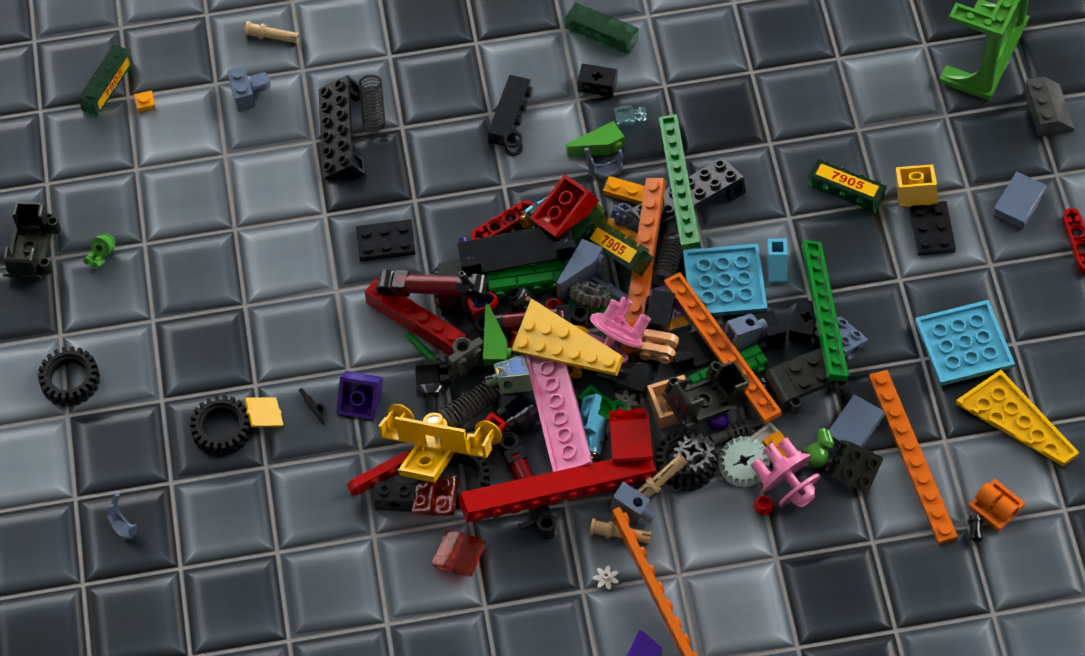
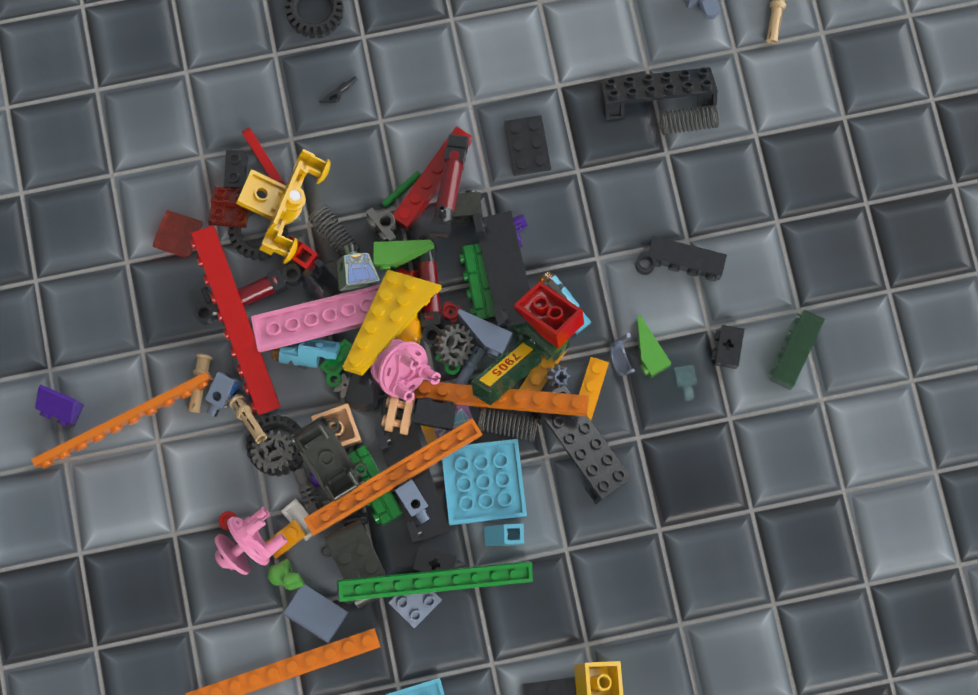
camera: 85 degrees right, 20 degrees up
(263, 412) = (327, 45): yellow piece -> none
(359, 395) = (348, 131): dark purple slope -> none
(432, 382) = (357, 198): black piece -> none
(477, 307) = (451, 246): red rock -> none
(499, 220) = (548, 259): red beam -> none
(520, 298) = (452, 279): black head -> none
(606, 577) = (156, 375): white plant -> none
(630, 435) = (293, 388): red slope -> none
(679, 182) = (591, 431): plate -> none
(730, 456) = (285, 505): light aqua gear -> none
(846, 185) = (603, 609): clear green brick -> none
(854, 466) = (263, 609): pearl dark grey bracket -> none

